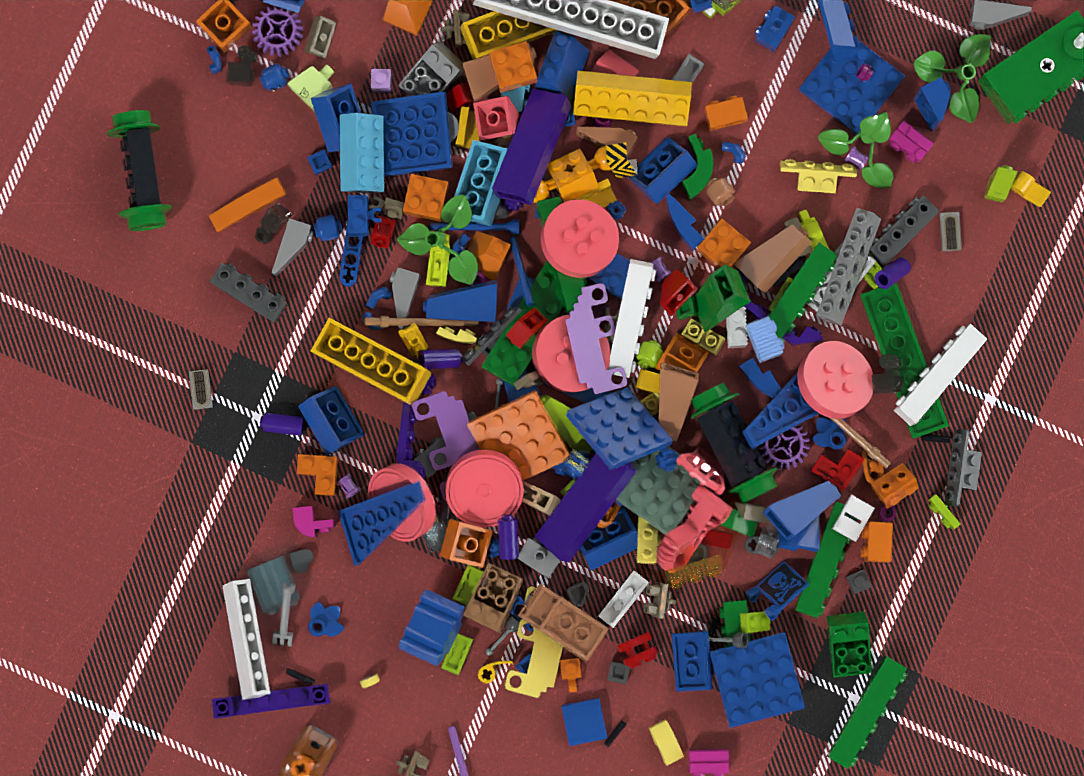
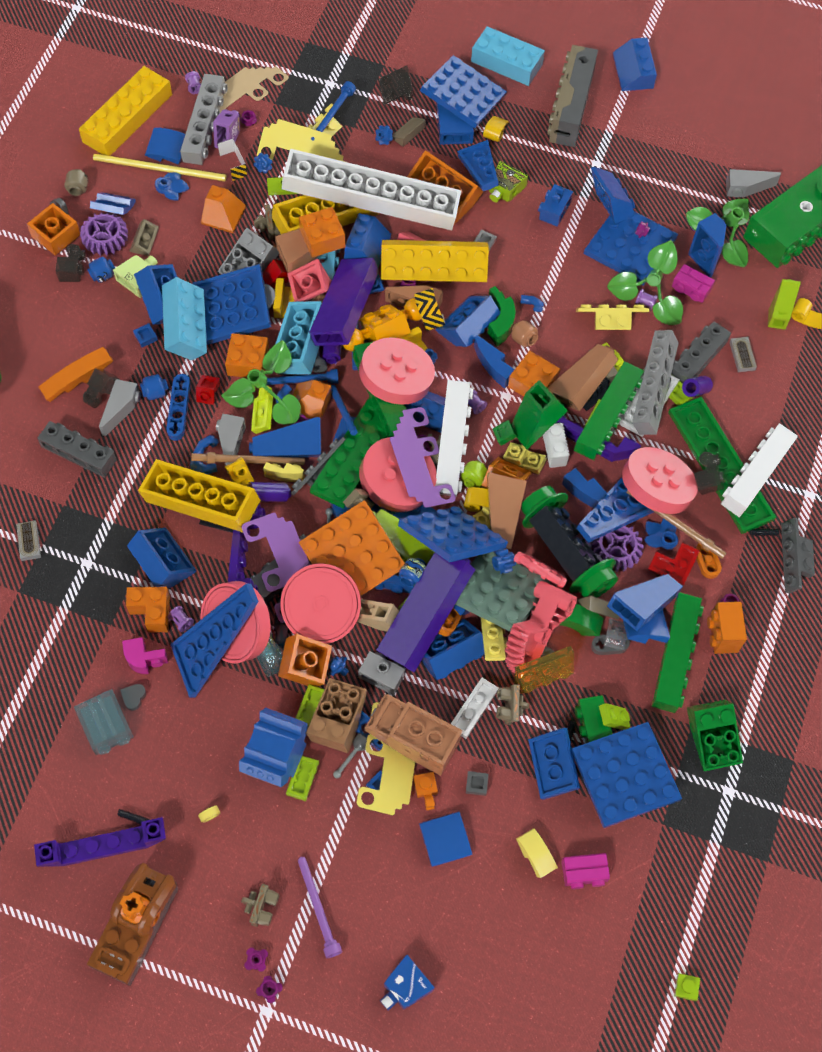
camera: 10 degrees left, 20 degrees down
(215, 56) = (47, 266): blue arm -> none
(246, 639) = (73, 778): white brick -> none
(282, 424) = (111, 564): dark purple brick -> none
(283, 634) = (114, 772): light grey hinge -> none
(327, 618) = (161, 753): blue plate -> none
(360, 215) = (184, 371): blue brick -> none
(381, 80) = (201, 265): lavender brick -> none
(390, 207) = (214, 366): dark tan plate -> none
(490, 667) = (338, 788): yellow panel -> none
(508, 537) = (348, 648): dark purple brick -> none
(526, 327) = (350, 450): red slope -> none
(577, 593) = (427, 703): dark grey tile -> none
(615, 733) = (480, 849): black piece -> none
(634, 659) = (494, 765): red brick -> none
(676, 291) = (494, 416): red slope -> none
(717, 539) = (559, 642): red sticker -> none
(725, 113) = (521, 270): orange brick -> none
(739, 640) = (601, 732): dark grey hinge -> none
(764, 339) = (587, 439): light blue brick -> none
(779, 587) = (633, 681): flag -> none
(848, 526) = (702, 596): white piece -> none
(858, 581) = (713, 672): dark grey plate -> none
(866, 712) = (745, 804): green brick -> none
(895, 486) = (734, 574): orange brick -> none
(948, 518) = (786, 596): lime plate -> none

